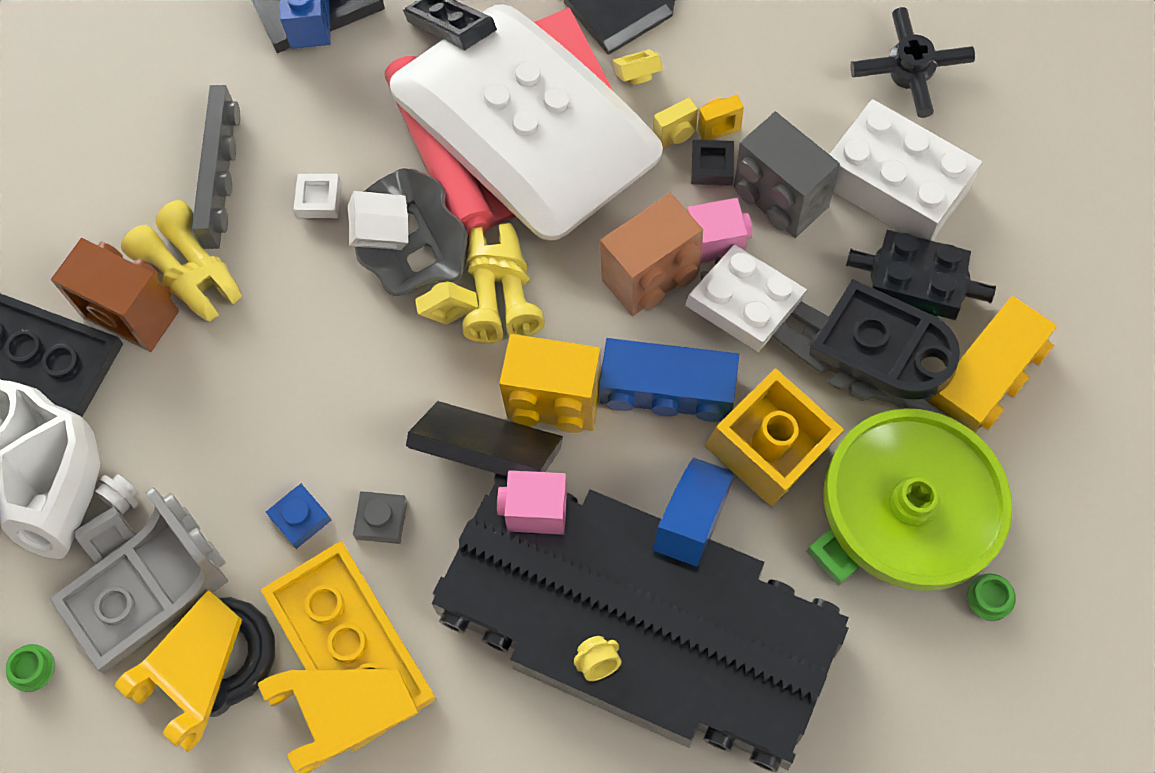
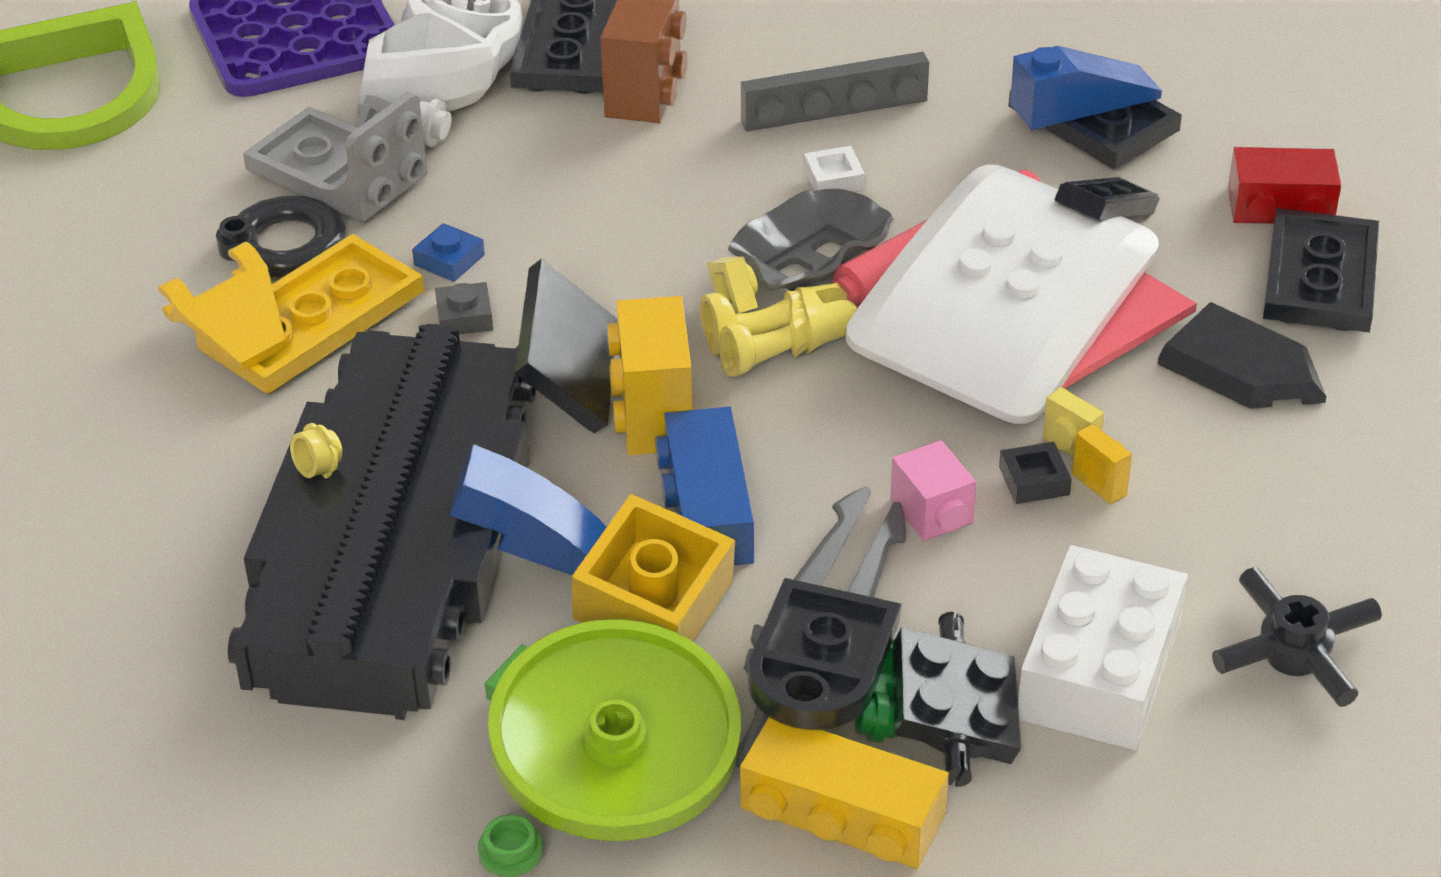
camera: 70 degrees right, 25 degrees down
(30, 668) = (240, 119): bright green plate -> none
(184, 280) = (690, 110): light yellow piece -> none
(188, 667) = (254, 205): yellow flag -> none
(378, 220) = (810, 204): white piece -> none
(534, 502) = (485, 364): bright pink brick -> none
(638, 66) = (1140, 378): light yellow plate -> none
(651, 254) = (855, 418): nougat brick -> none
(746, 297) = (842, 525): white plate -> none
(785, 174) = (1028, 517): dark grey brick -> none

